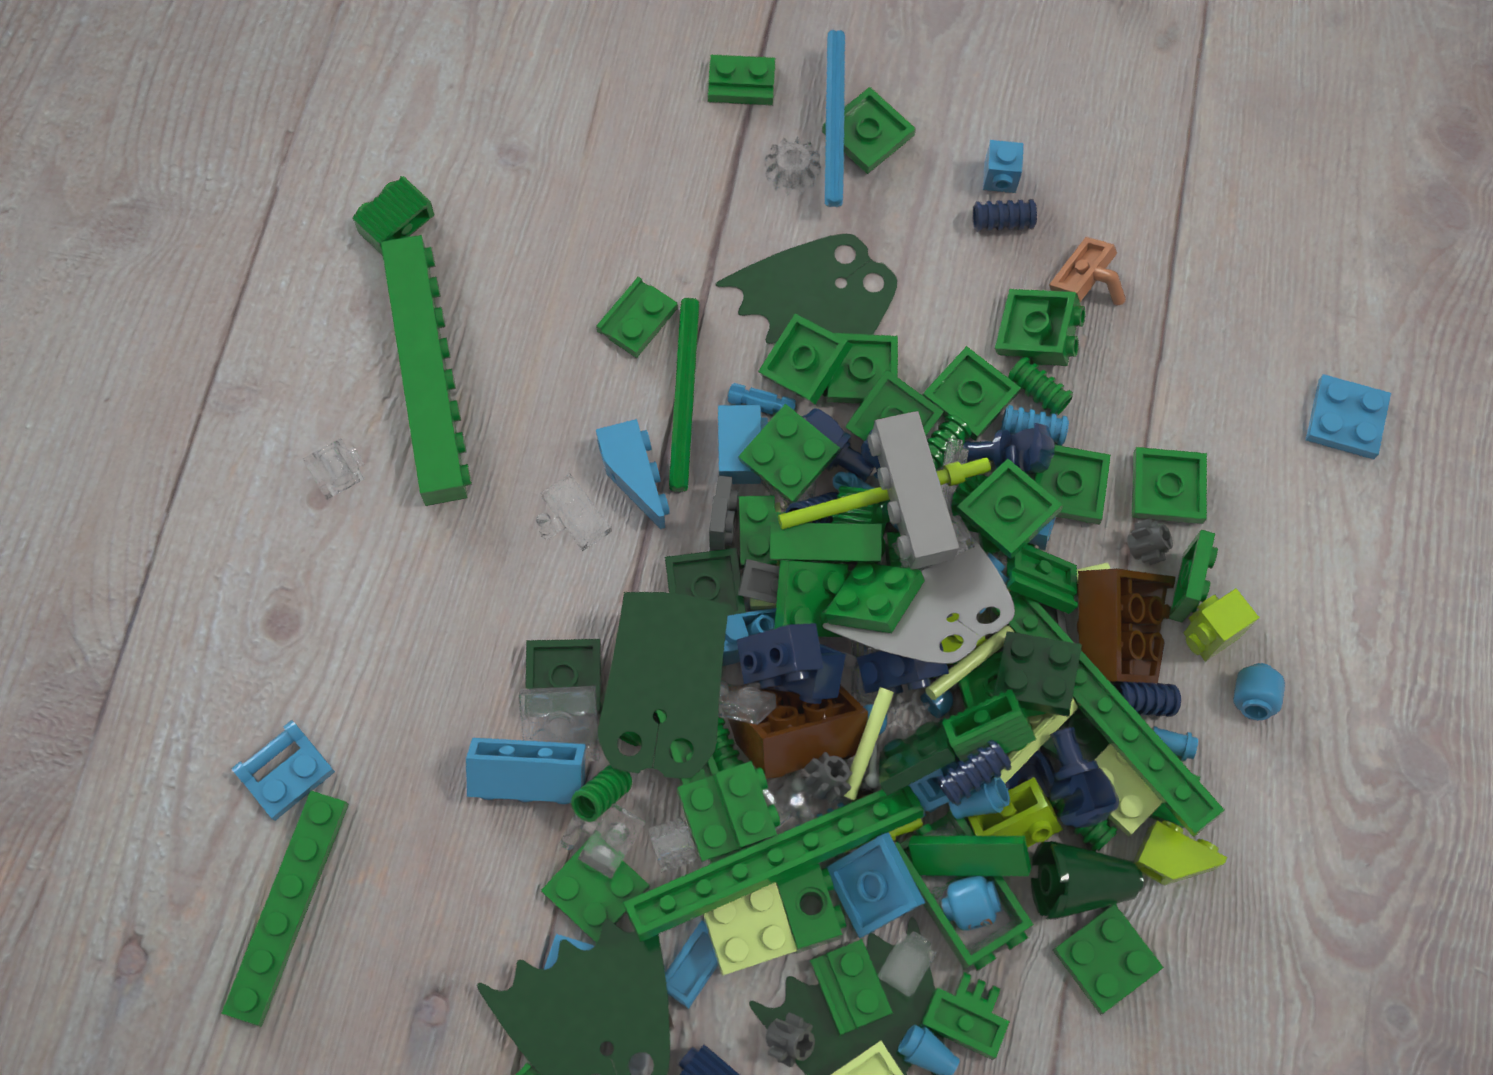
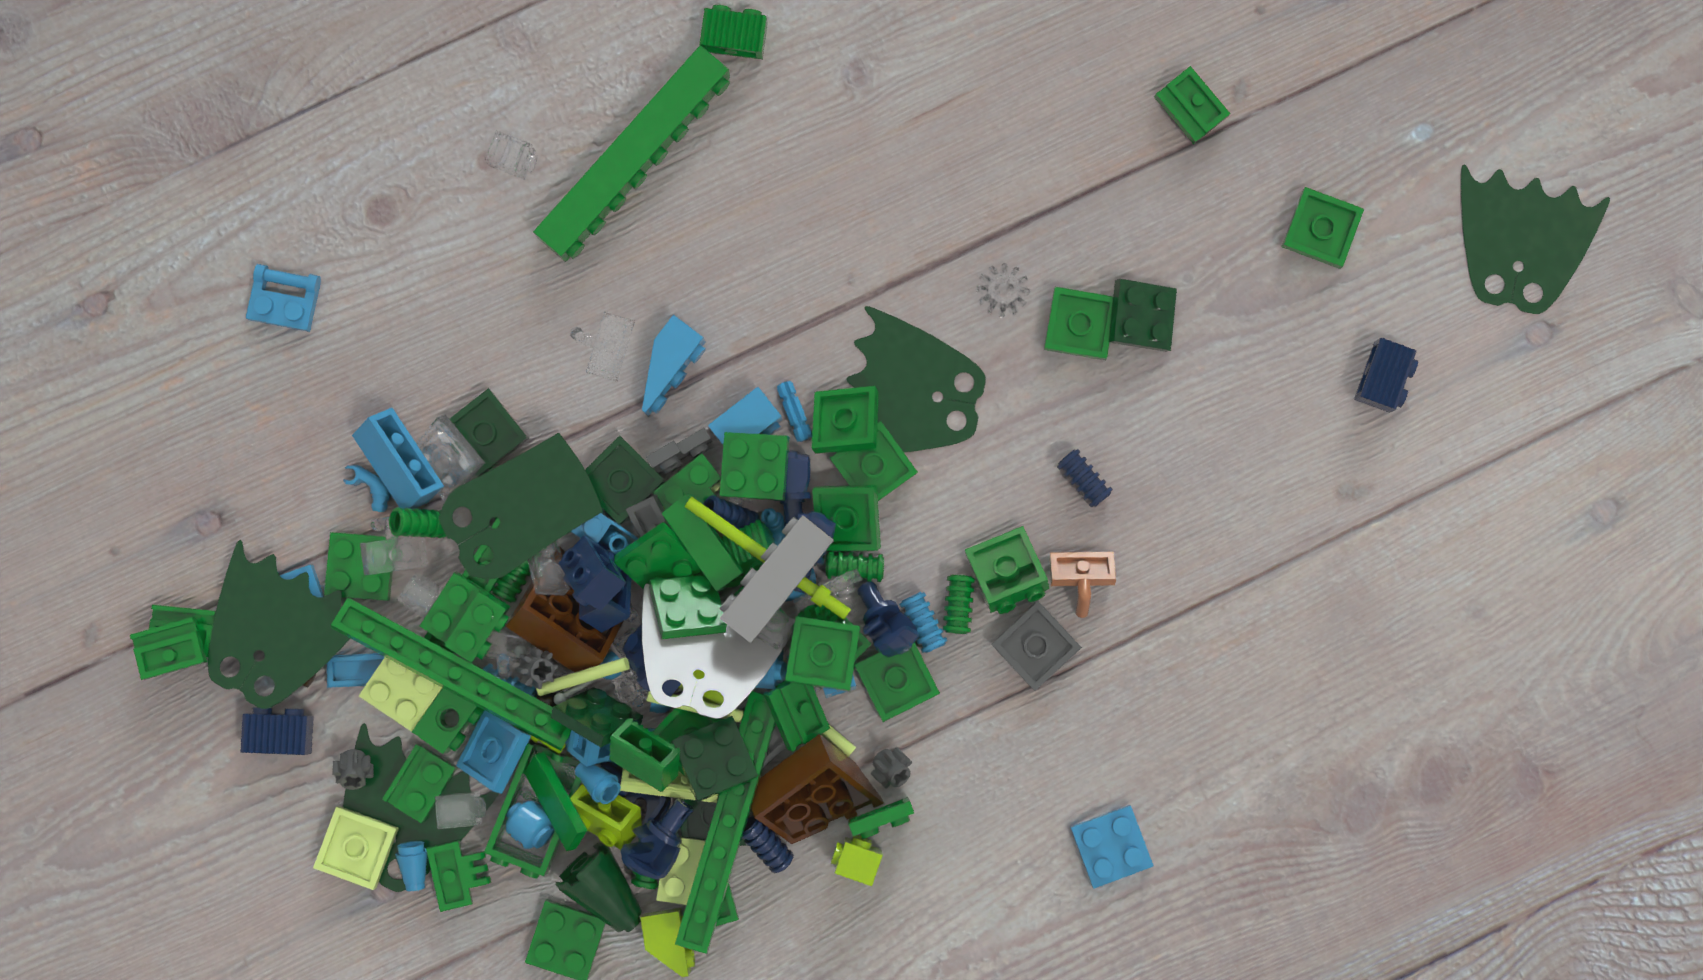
camera: 55 degrees right, 15 degrees up
(285, 909) = (199, 375): green plate -> none
(538, 814) = (377, 488): none -> dark azure piece
(637, 317) = (792, 271): green plate -> none
(684, 395) = (757, 352): green axle -> none
(741, 79) = (1052, 194): green plate -> none
(835, 119) = (1065, 292): dark azure axle -> none
(900, 79) = (1142, 315): none -> dark green plate
(972, 391) = (915, 557): green plate -> none
(974, 772) = (602, 766): dark blue piece -> none
(1003, 166) = (1123, 448): dark azure brick -> none
(1124, 351) = (1036, 645): none -> dark grey plate
(1169, 485) = (950, 752): green plate -> none
(1180, 744) = (752, 885): dark azure pin -> none
(1259, 691) = (834, 920): dark azure head -> none

